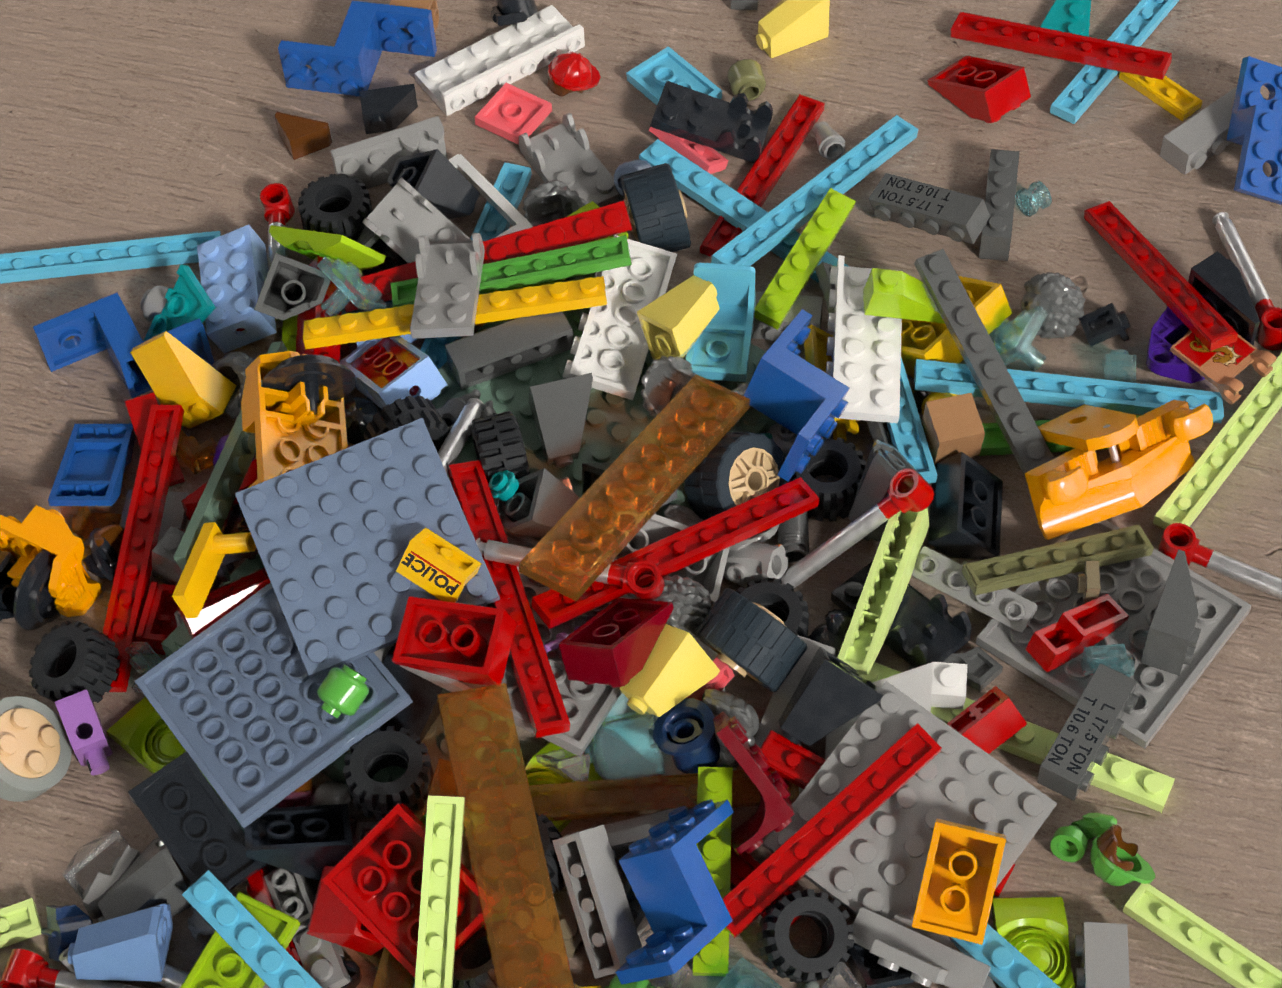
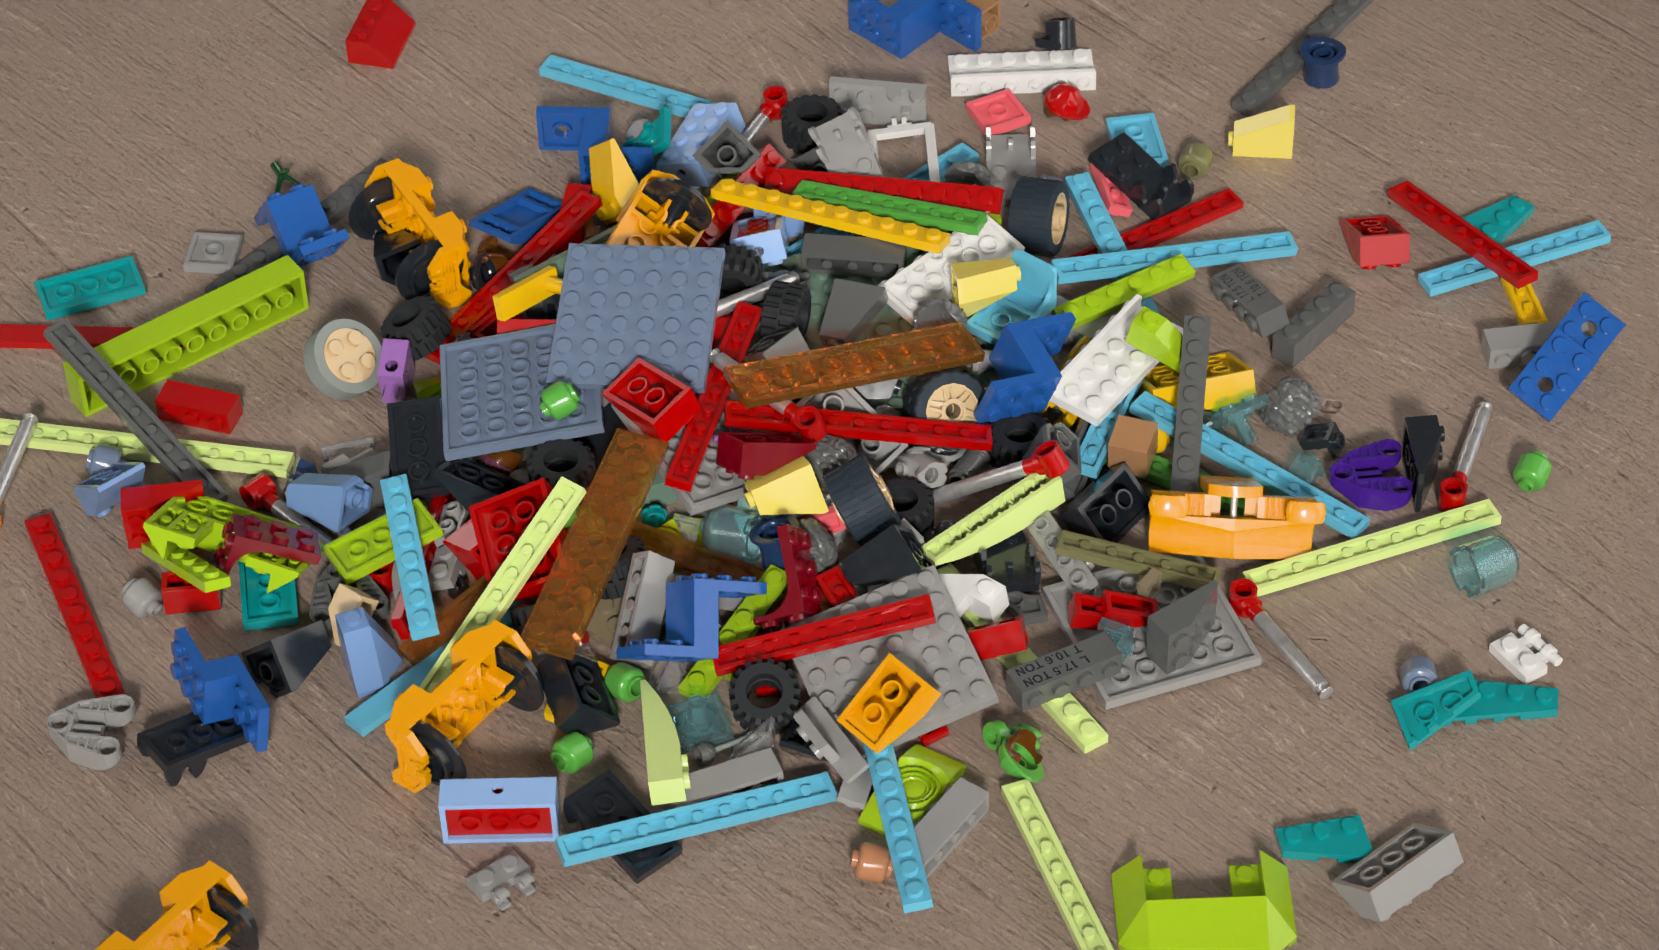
camera: 30 degrees right, 10 degrees down
(302, 134) = (830, 63): reddish brown slope -> none
(327, 245) = (779, 140): lime slope -> none
(349, 288) = (767, 166): clear light blue plate -> none
(387, 107) = (908, 68): black slope -> none
(437, 182) = (893, 134): black slope -> none
(437, 566) = (670, 345): yellow panel -> none
(447, 288) = (832, 193): light grey hinge -> none
(503, 485) = (766, 330): teal plate -> none
(829, 142) = (1222, 227): light grey cone -> none
(1033, 198) = (1345, 331): clear light blue wheel -> none
(1161, 276) = (1389, 420): red tile -> none
(1223, 363) = (1384, 487): nougat flag -> none

